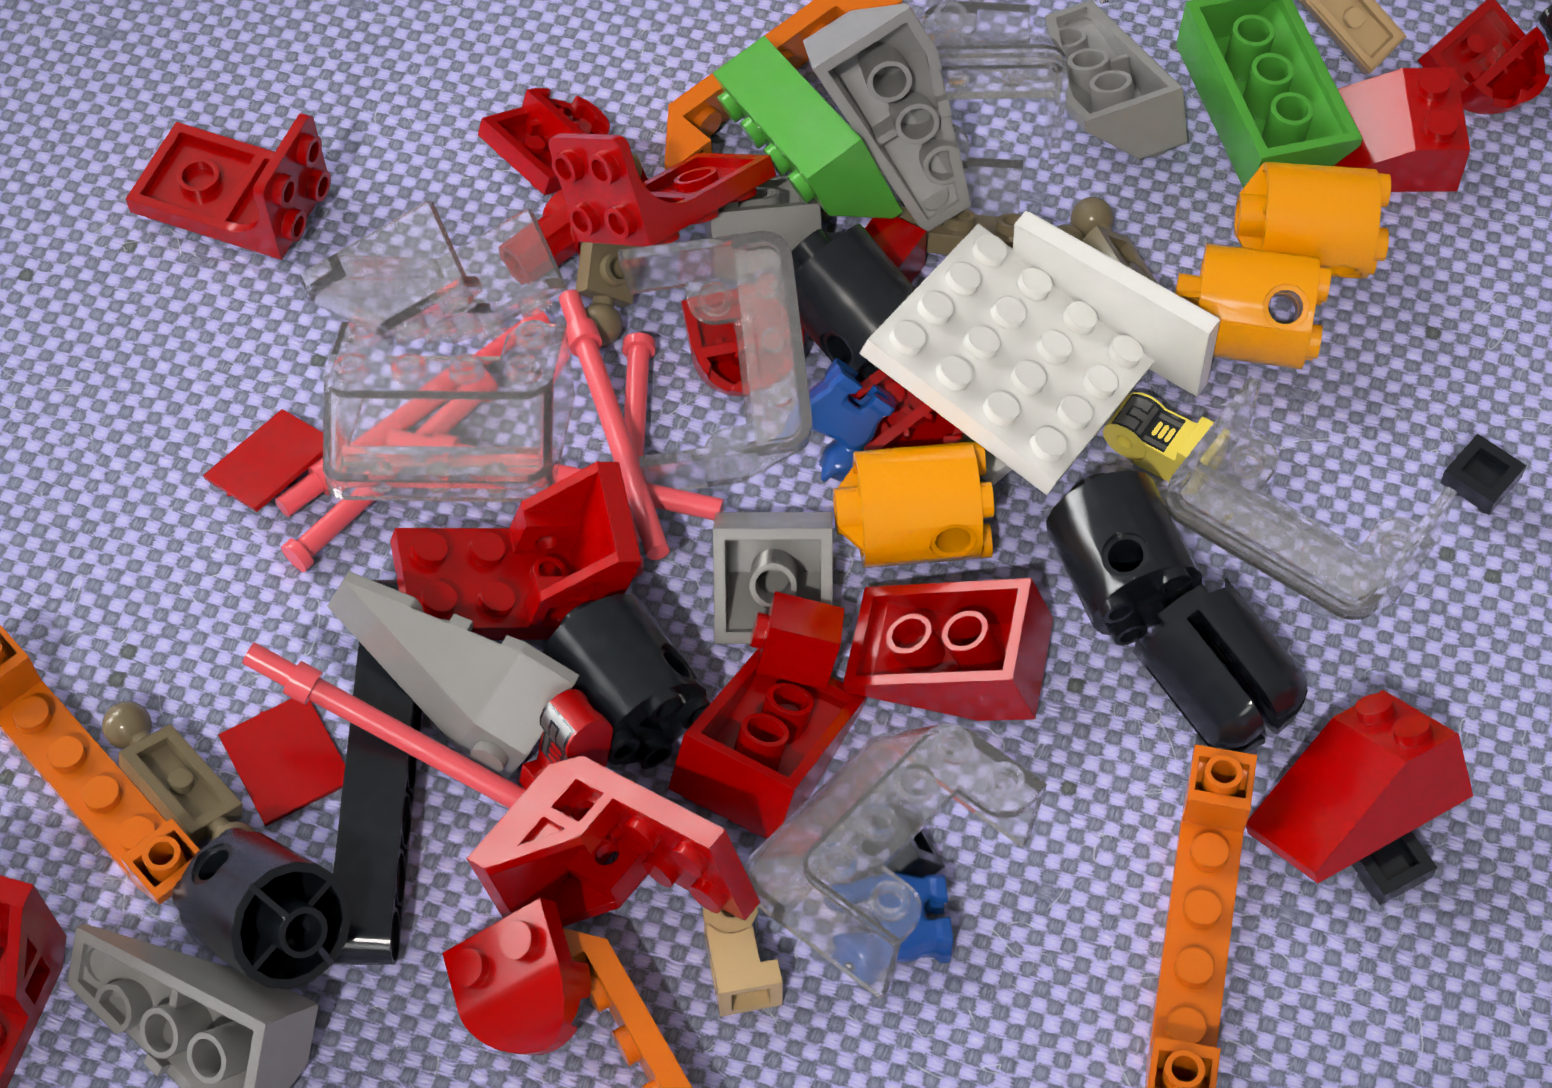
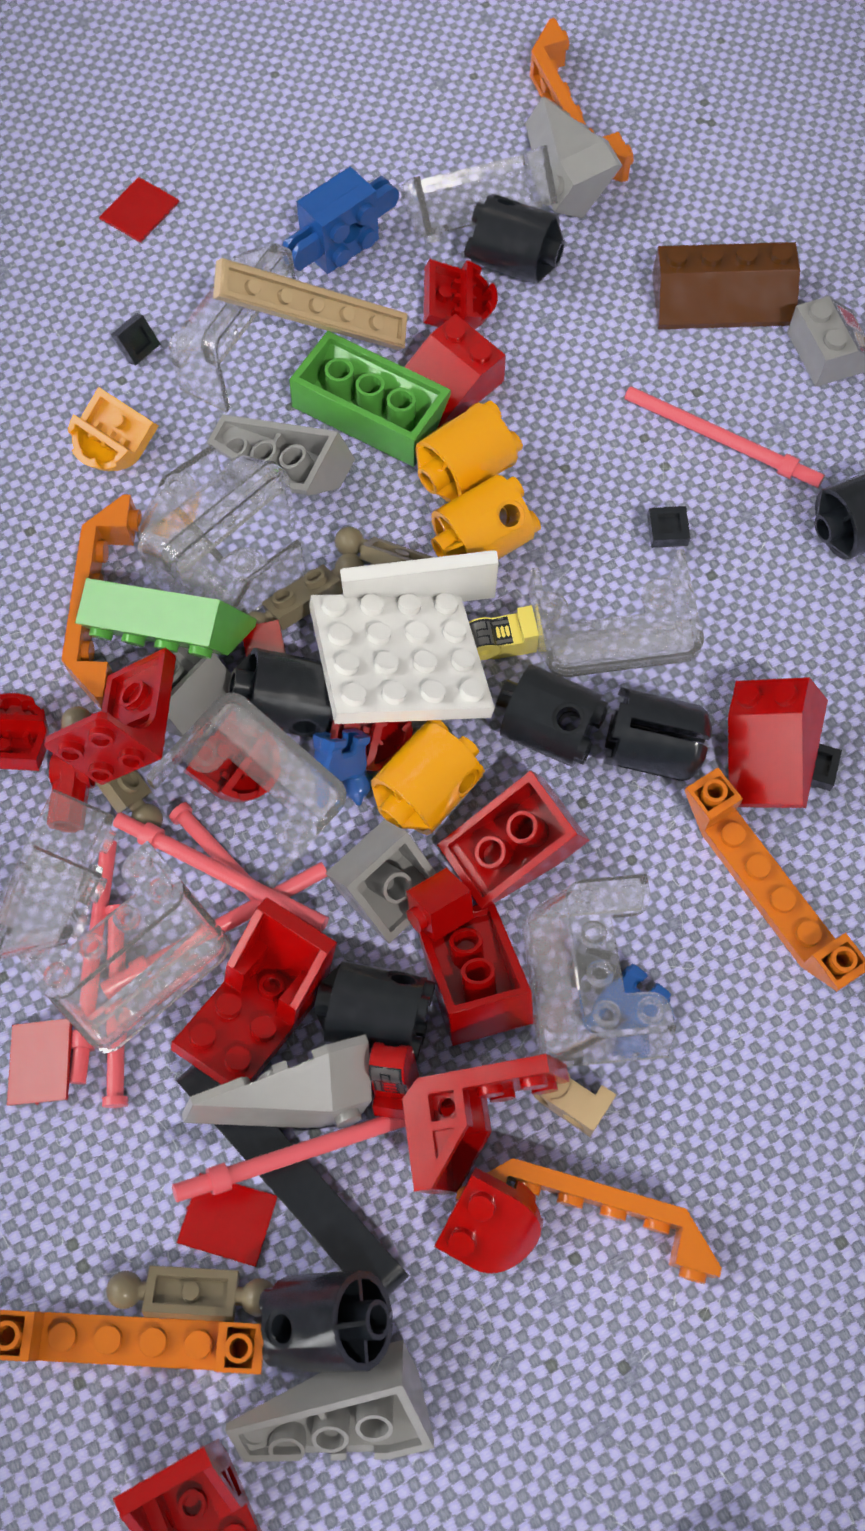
camera: 45 degrees left, 10 degrees up
(894, 97) = (211, 559): light grey wedge -> none

